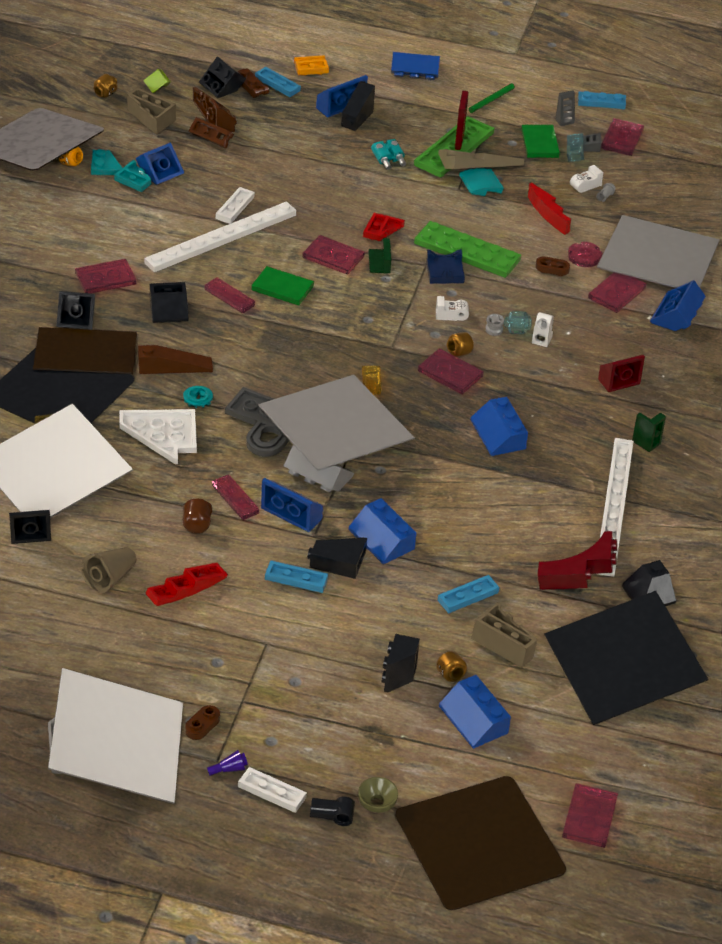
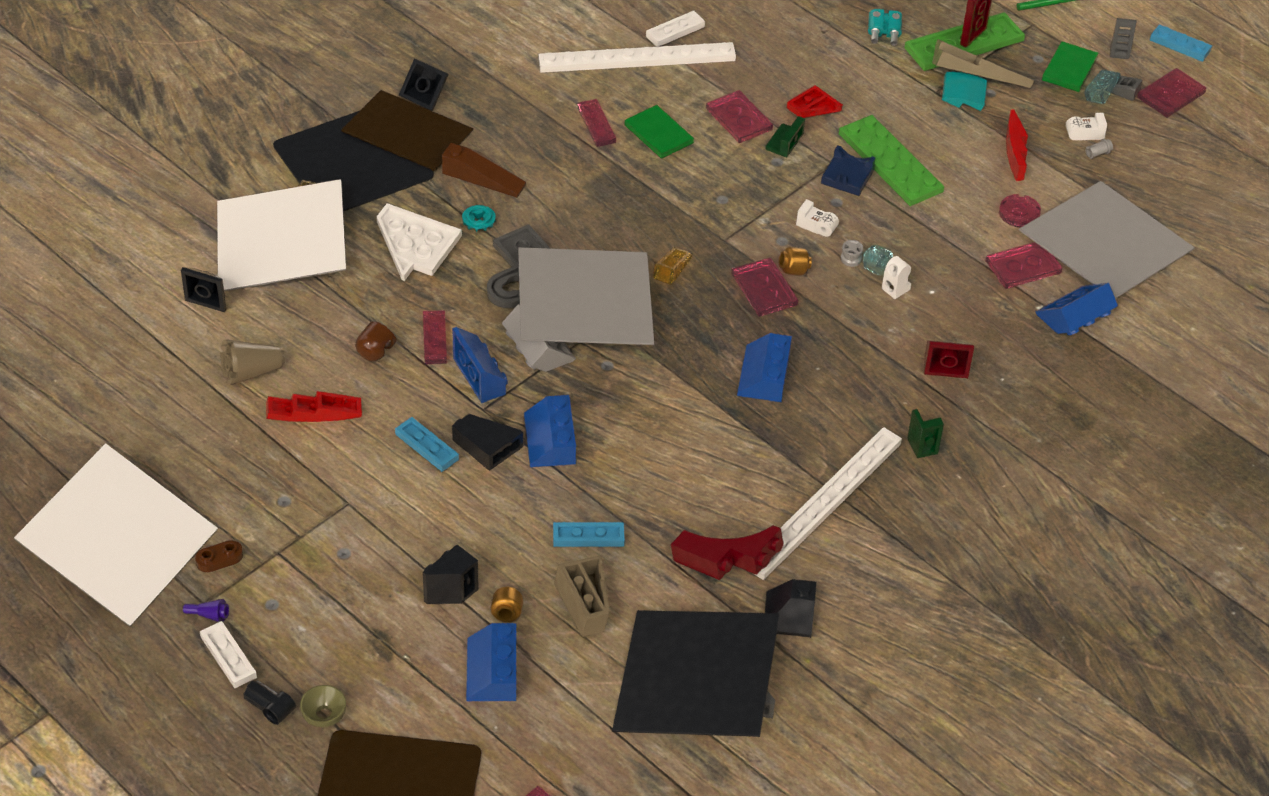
camera: 30 degrees right, 5 degrees up
(105, 276) = (486, 59): clear pink tile -> none
(168, 302) = (522, 108): black slope -> none
(552, 266) = (969, 211): reddish brown plate -> none

